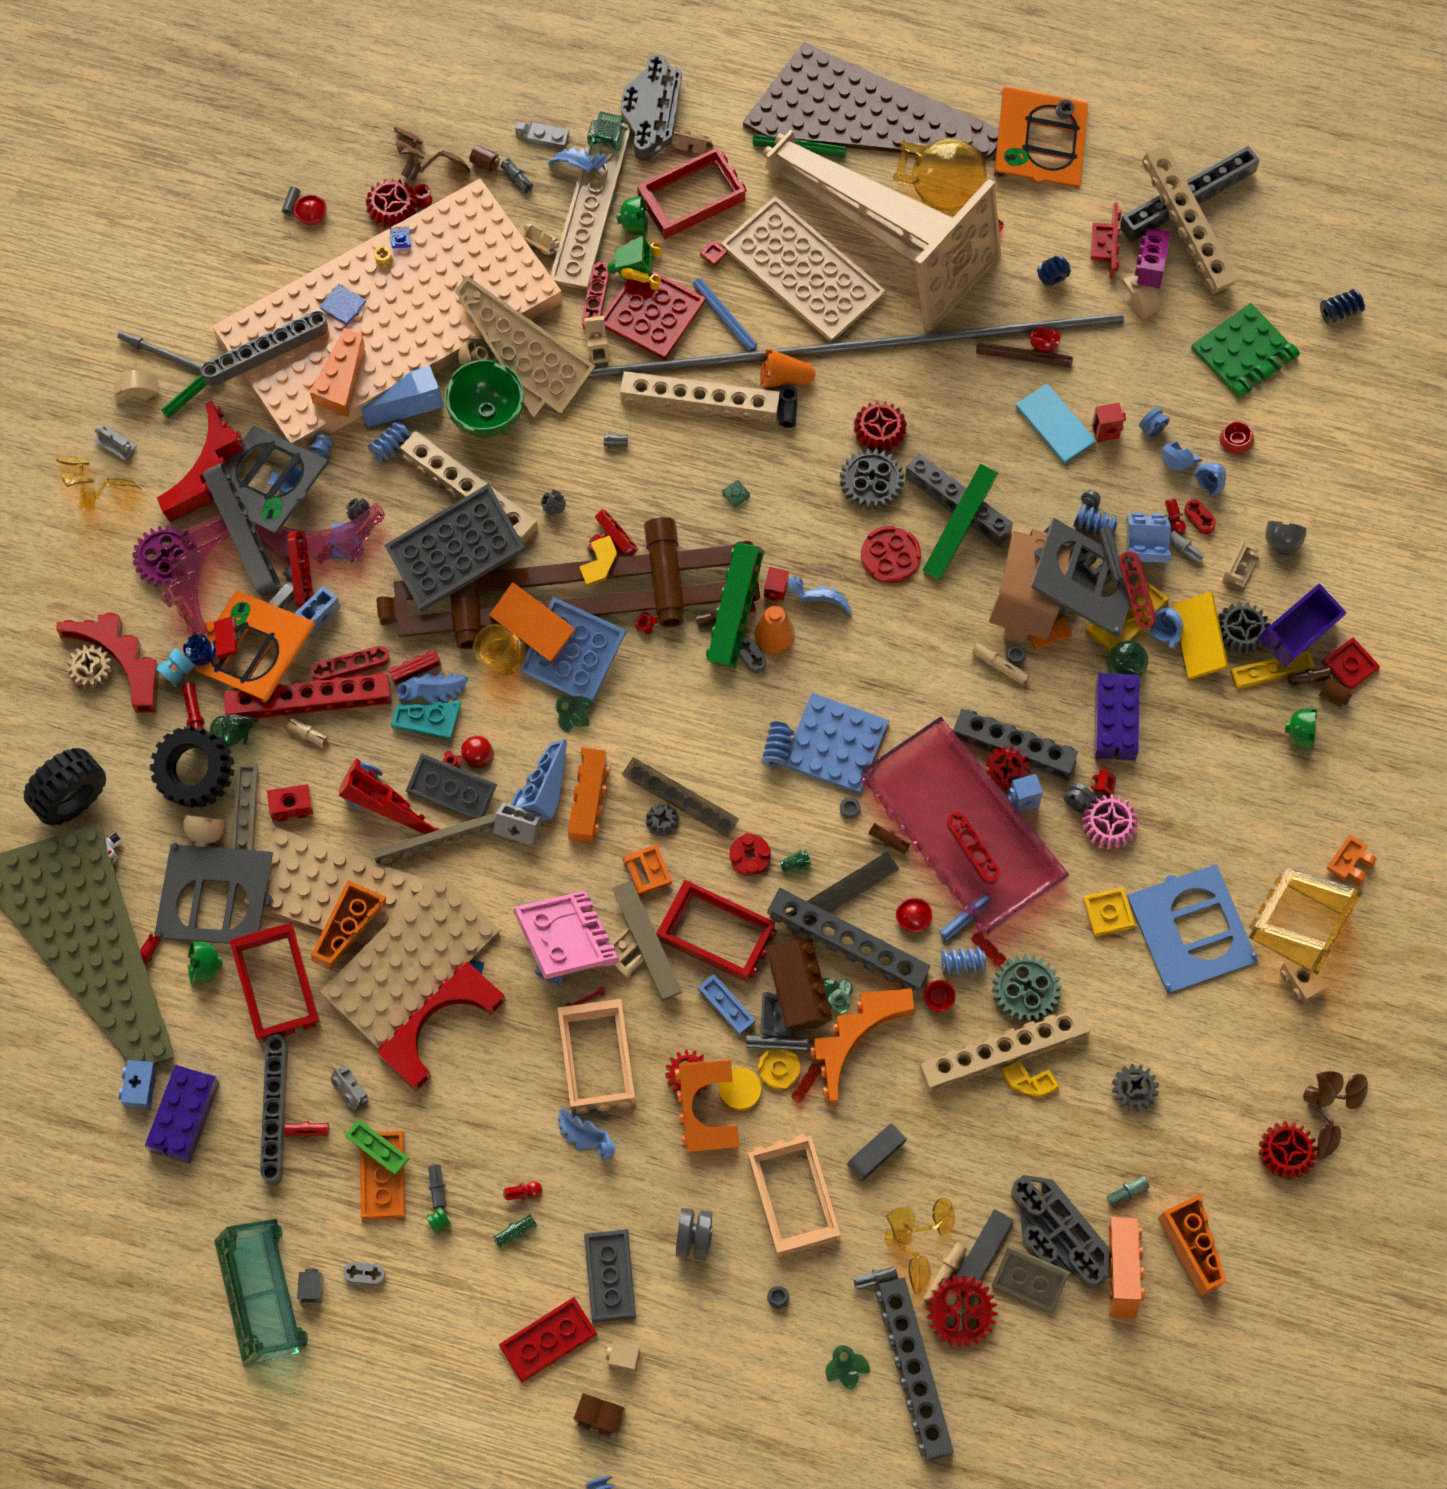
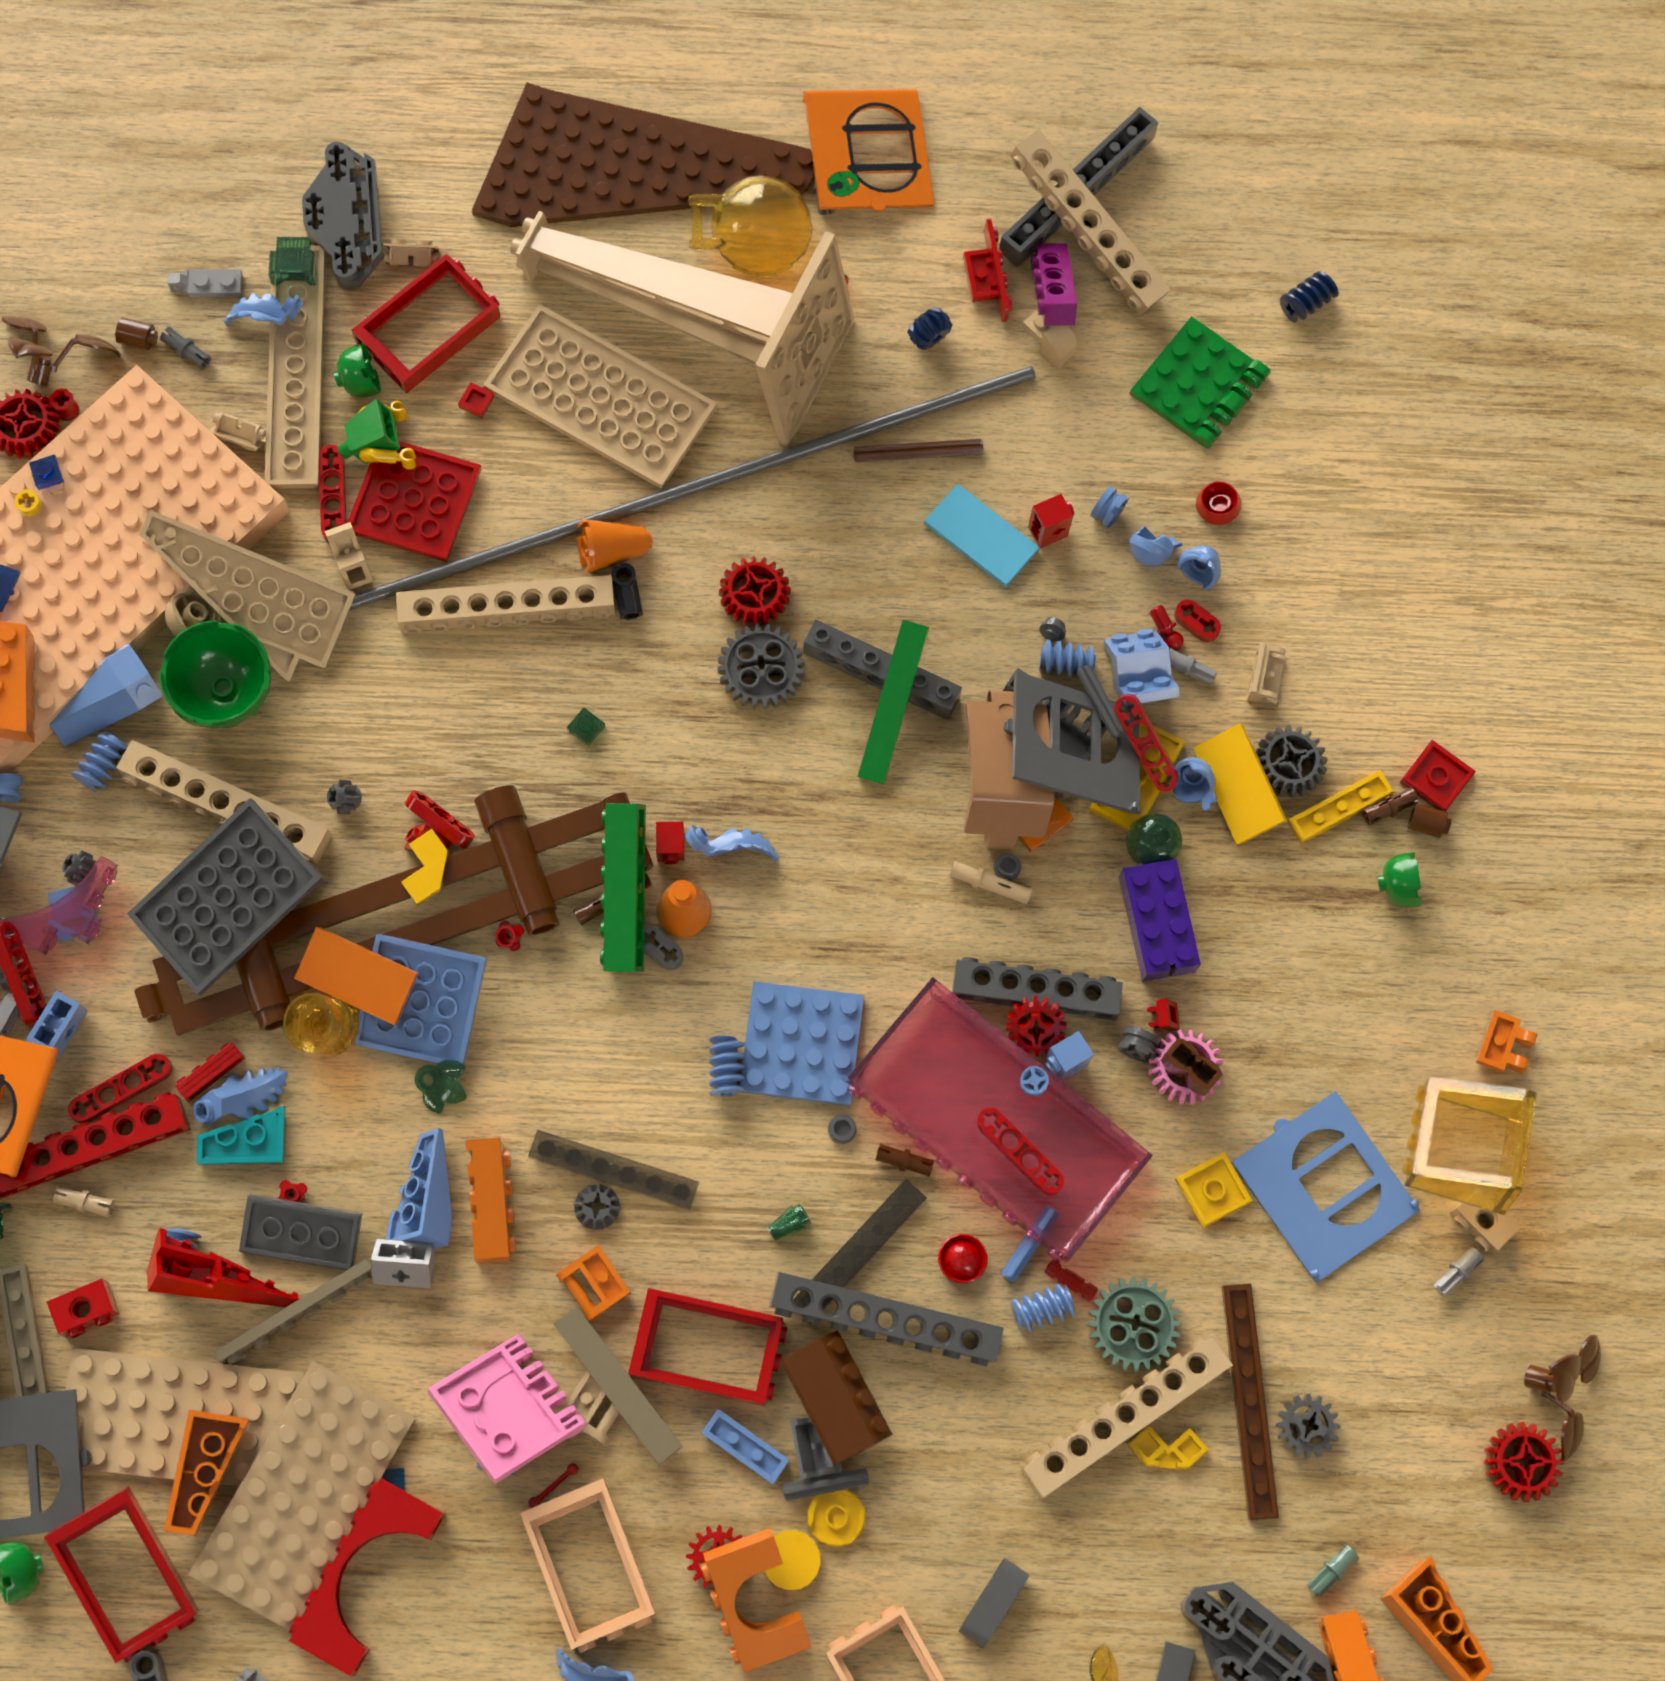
camera: 20 degrees left, 5 degrees up
(477, 751) = (324, 1171): red hair -> none
(615, 440) = (407, 689): dark grey pin -> none
(725, 315) = (512, 482): medium blue axle -> none
(750, 866) = (720, 1211): red plate -> none
(806, 1083) = (877, 1529): clear red axle -> none
(817, 148) = (569, 226): green axle -> none
(838, 991) = (889, 1389): clear green plate -> none
(875, 1009) = (904, 1477): orange arch -> none
(890, 554) = (810, 764): red tile -> none
(939, 995) = (1024, 1364): red hair -> none
(995, 797) = (1037, 1078): none -> medium blue wheel
(1045, 339) = (941, 424): red hair -> none
(1062, 104) = (895, 111): dark grey bush -> none
(1097, 1063) = (1250, 1402): none -> reddish brown tile
(1108, 814) = (1185, 1062): none -> reddish brown brick
(1275, 1009) = (1458, 1271): none -> light grey axle
(1284, 536) = (1314, 625): dark grey cylinder -> none
(1302, 625) = (1367, 742): dark purple piece -> none

